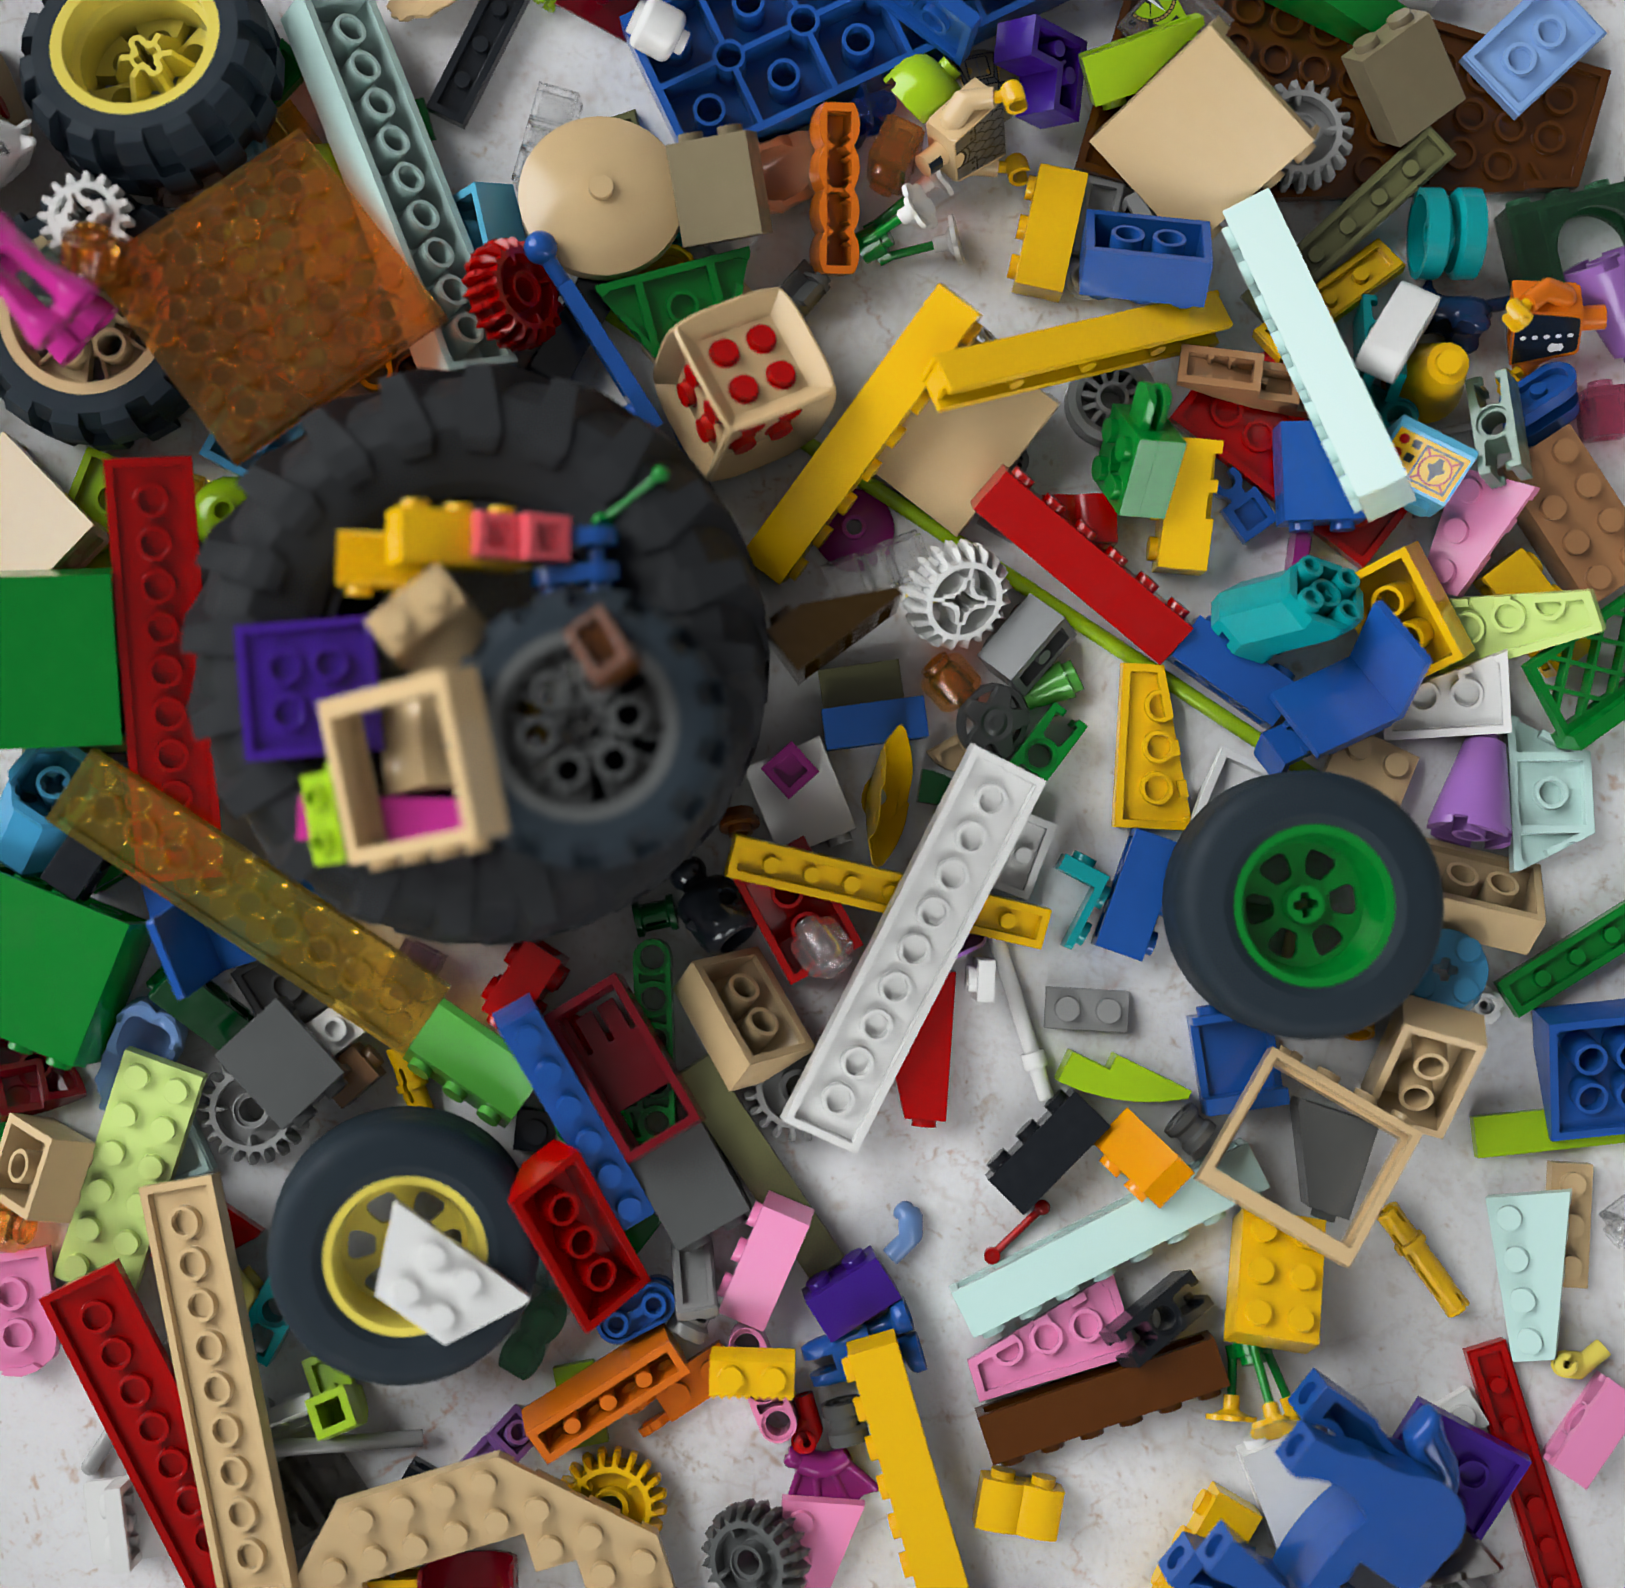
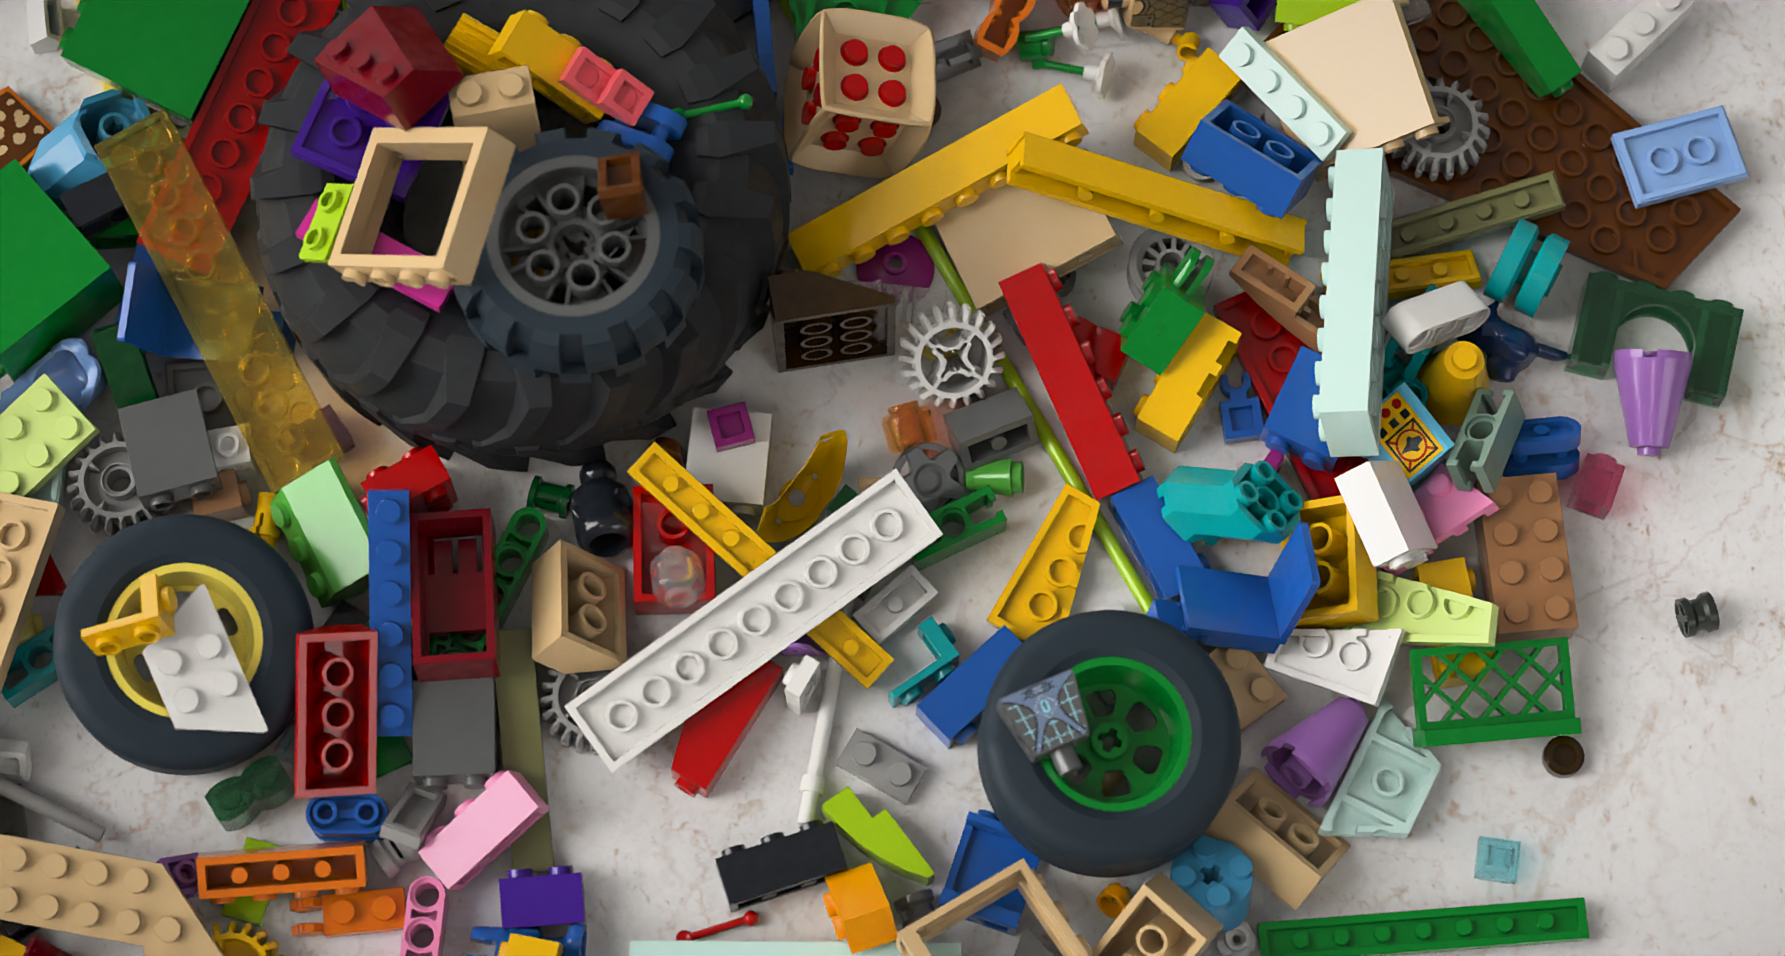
camera: 25 degrees right, 15 degrees down
(300, 628) = (390, 65): none -> dark red wedge
(336, 1401) = (48, 755): lime brick -> none
(372, 1263) = (143, 628): none -> yellow bracket
(415, 749) = (426, 212): tan slope -> none
(752, 1372) = (419, 909): yellow brick -> none
(860, 683) = (831, 397): olive tile -> none
(873, 722) = (804, 421): blue piece -> none
(910, 1231) = (623, 877): medium blue arm -> none
(1142, 176) = (1285, 94): none -> light aqua plate
(1257, 931) = (1048, 721): none -> torso
(1403, 76) = (1547, 119): dark tan brick -> none
(1446, 552) = (1386, 514): none -> white brick
(1546, 323) = (1574, 377): torso -> none

